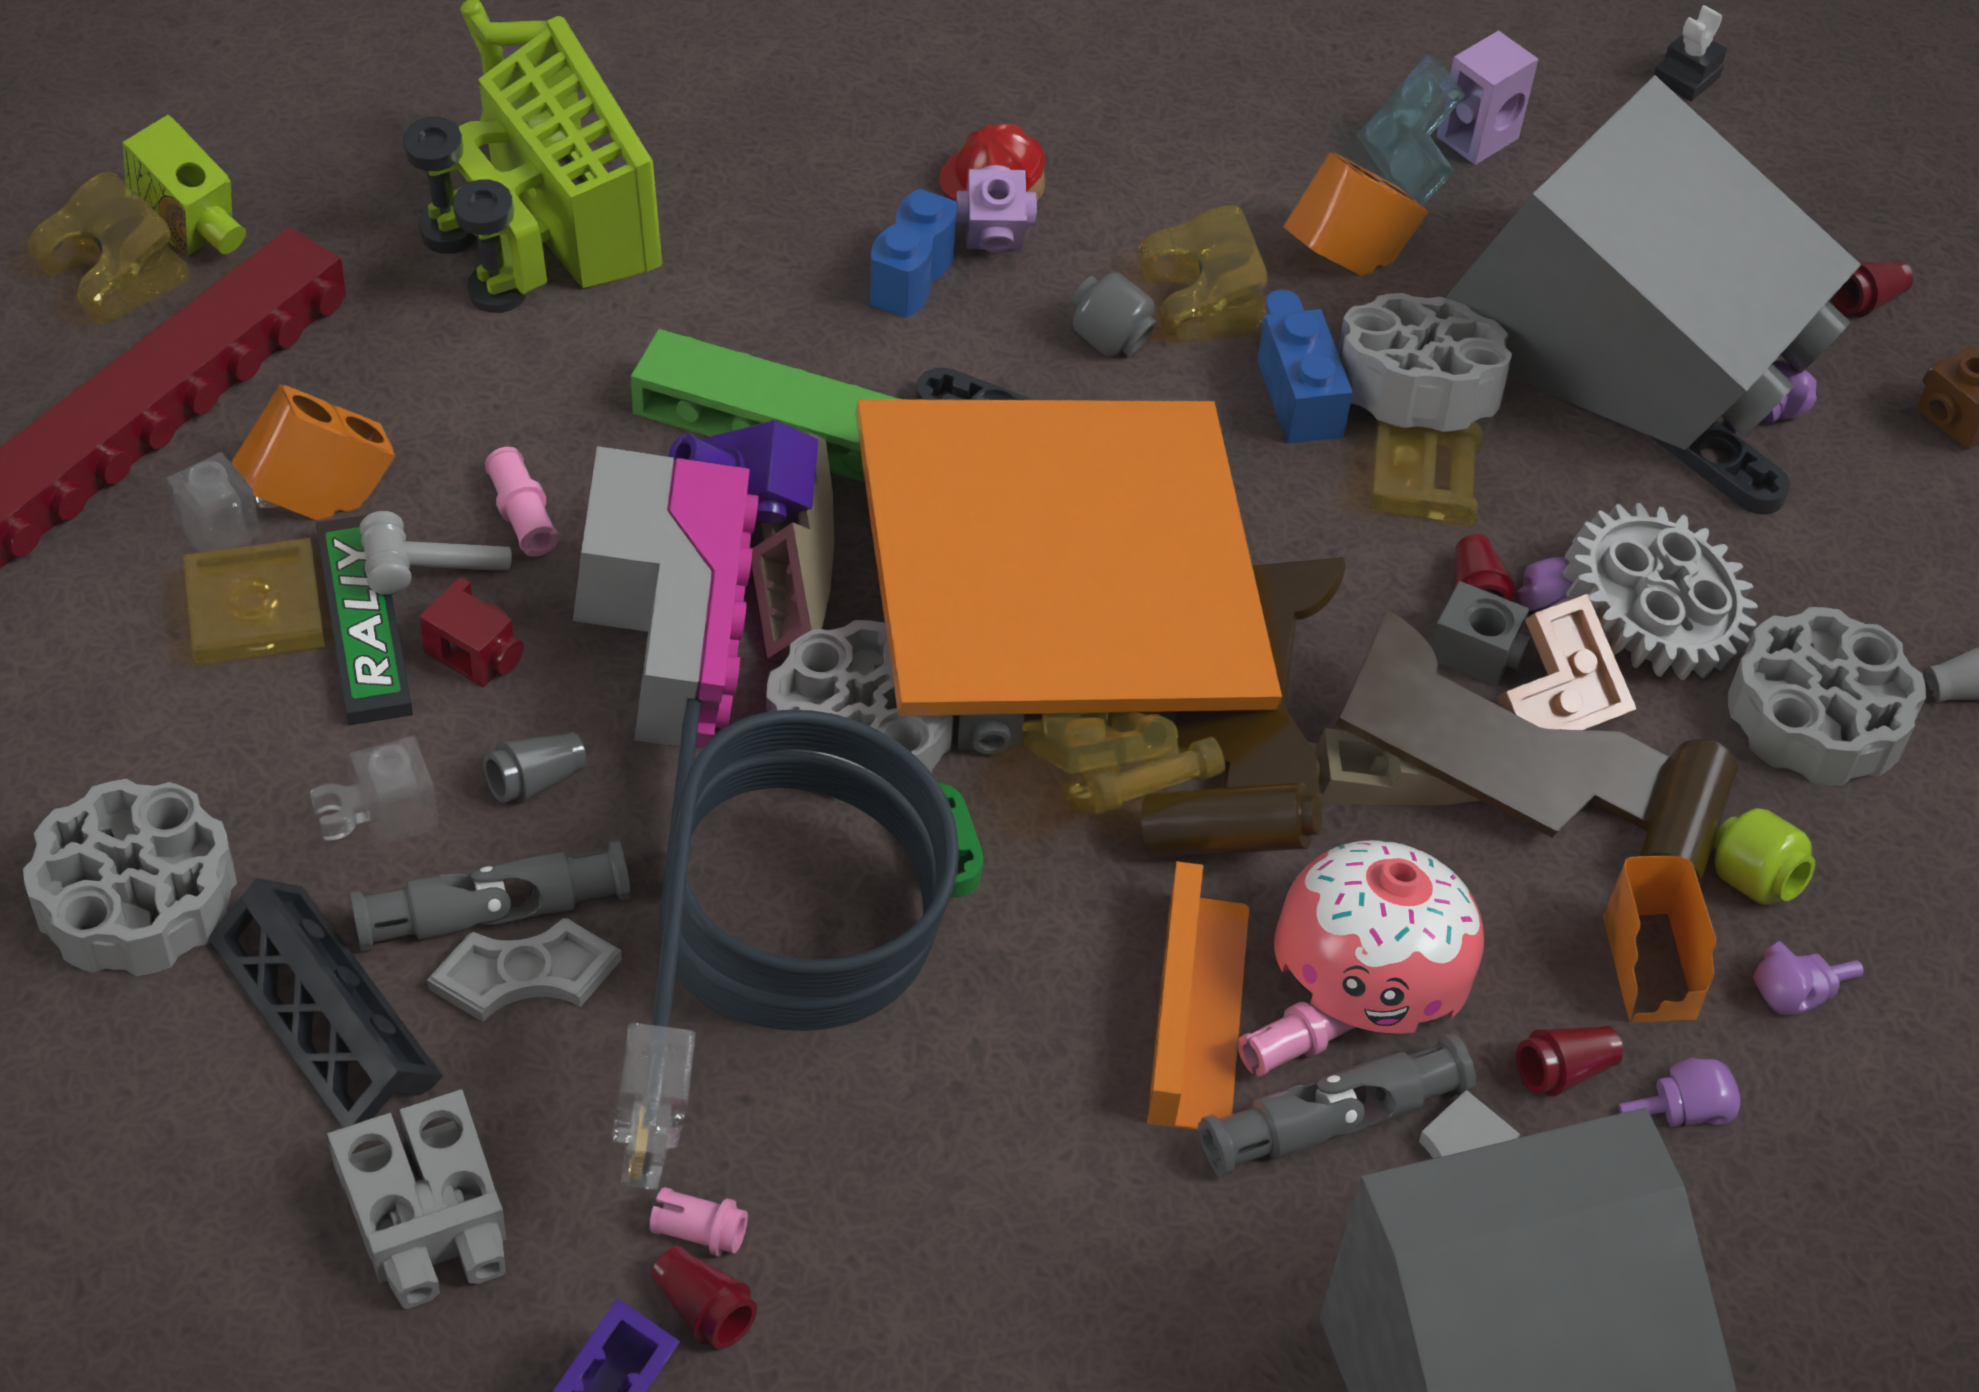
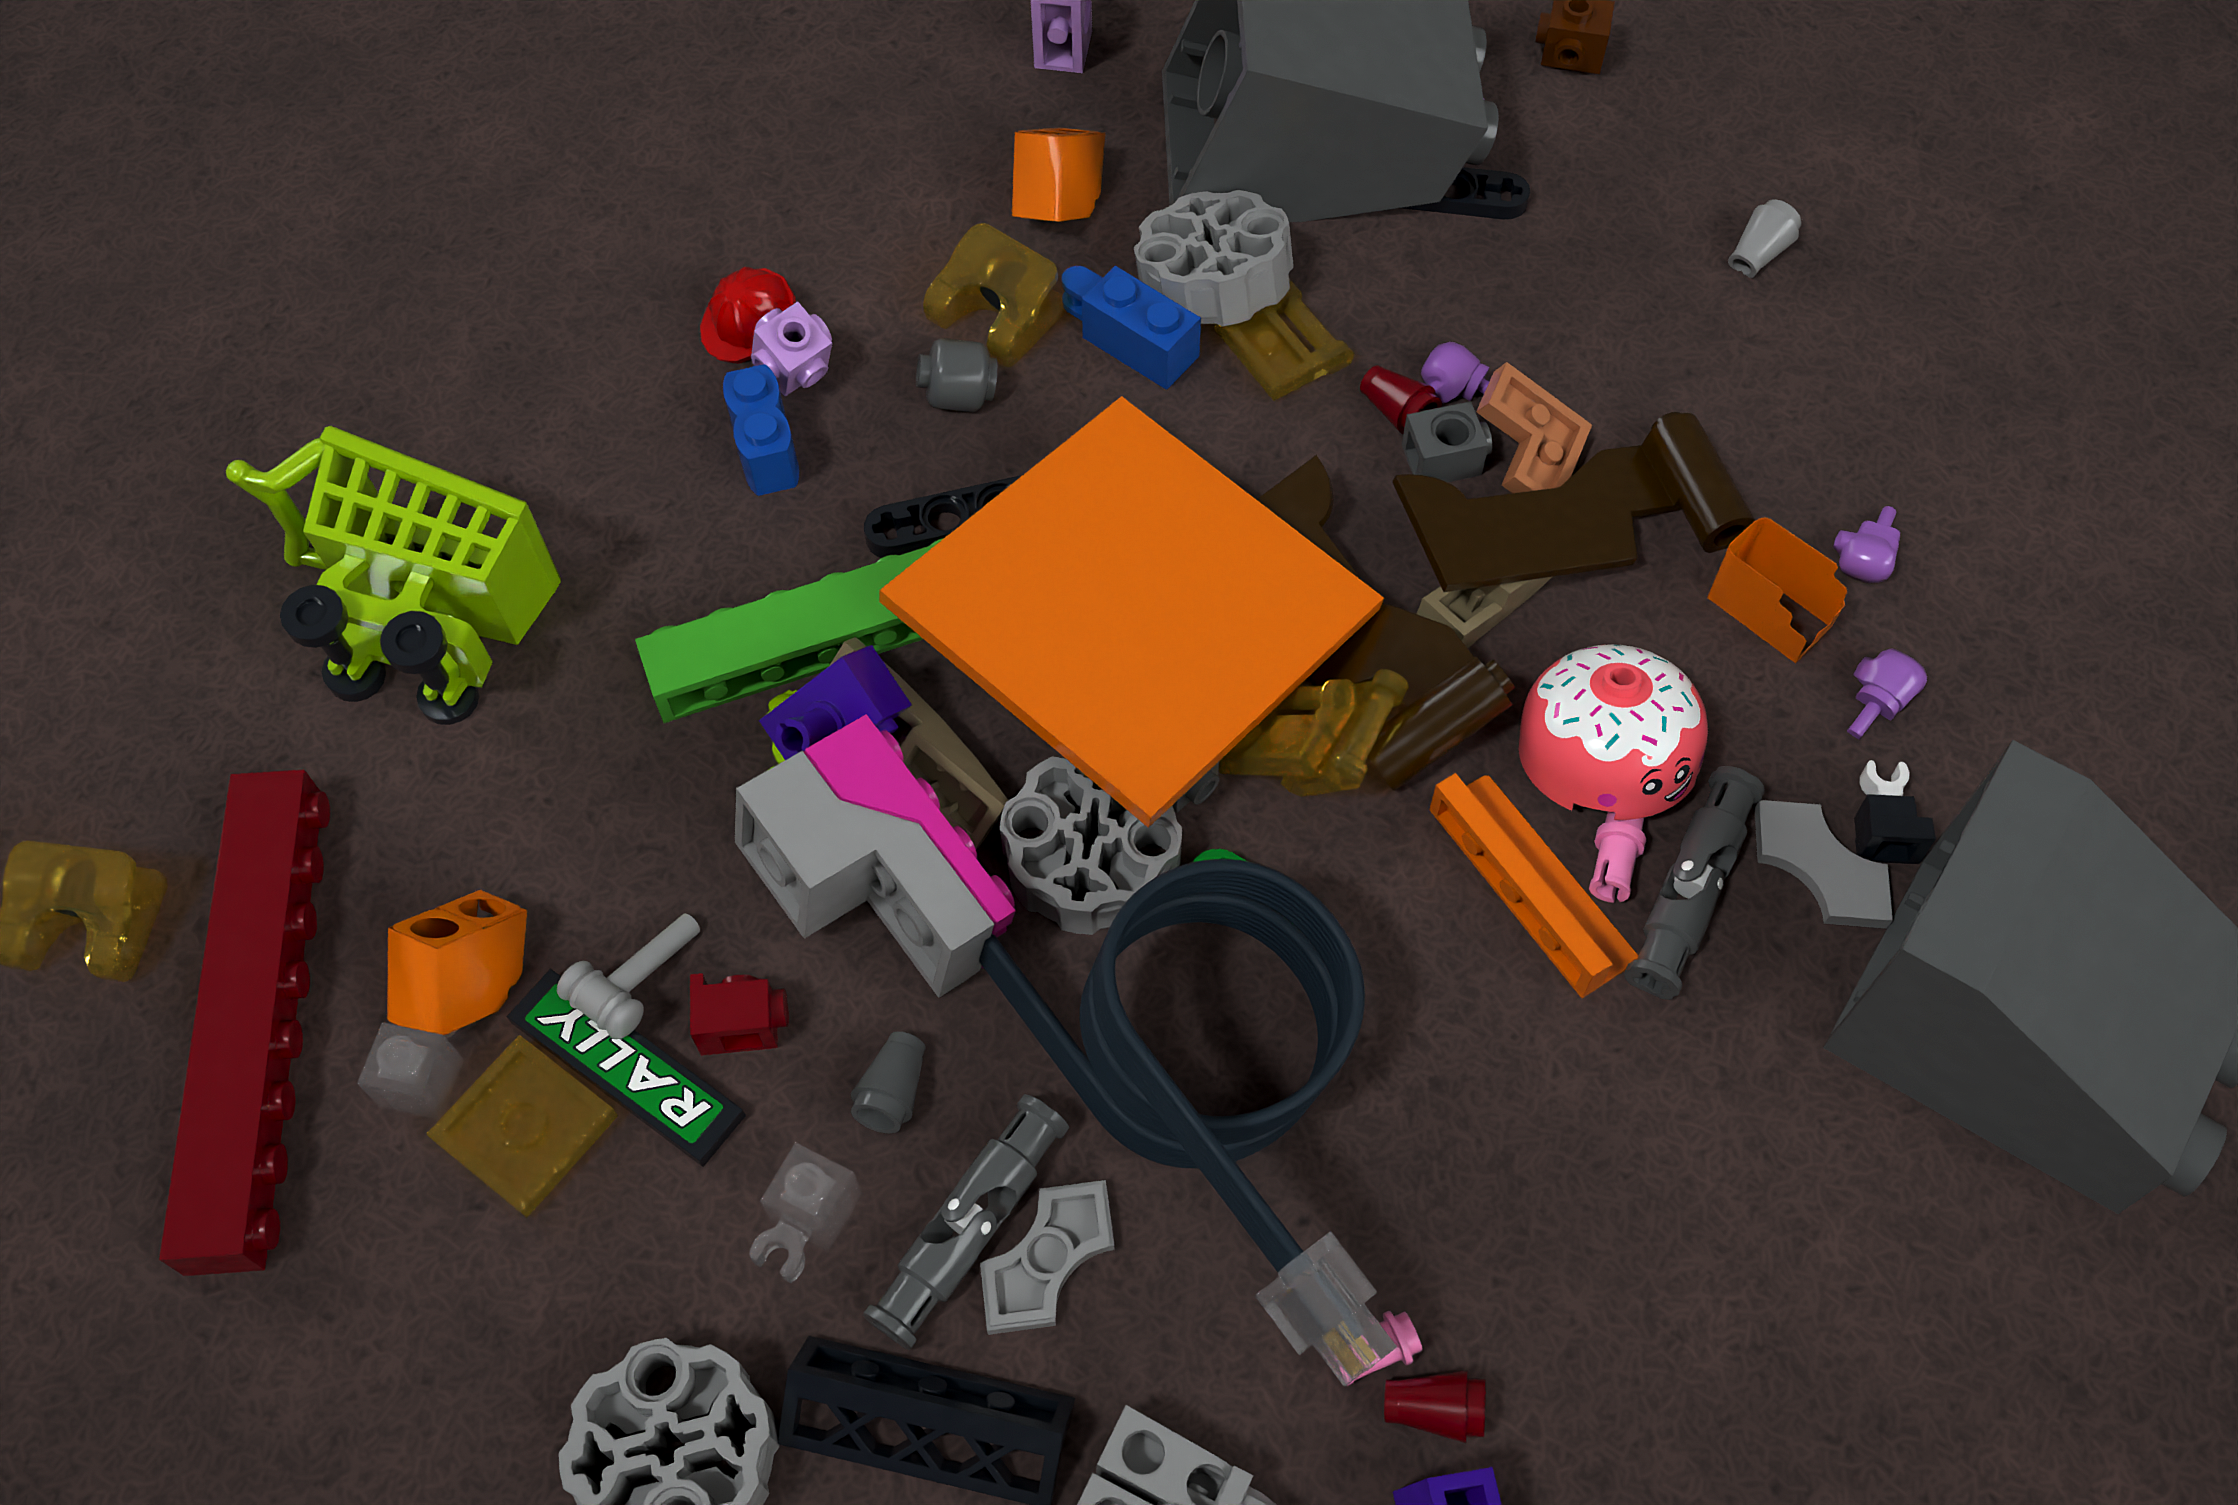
camera: 35 degrees left, 10 degrees up
(182, 187) = (95, 806): lime torso -> none
(521, 501) = (657, 867): bright pink pin -> none
(1402, 128) = (1019, 77): clear light blue plate -> none
(1566, 1057) = (1794, 724): dark red cone -> none
(1661, 590) = (1527, 320): light grey gear -> none
(1763, 857) = (1772, 474): lime head -> none
(1826, 696) = (1696, 324): light grey connector -> none

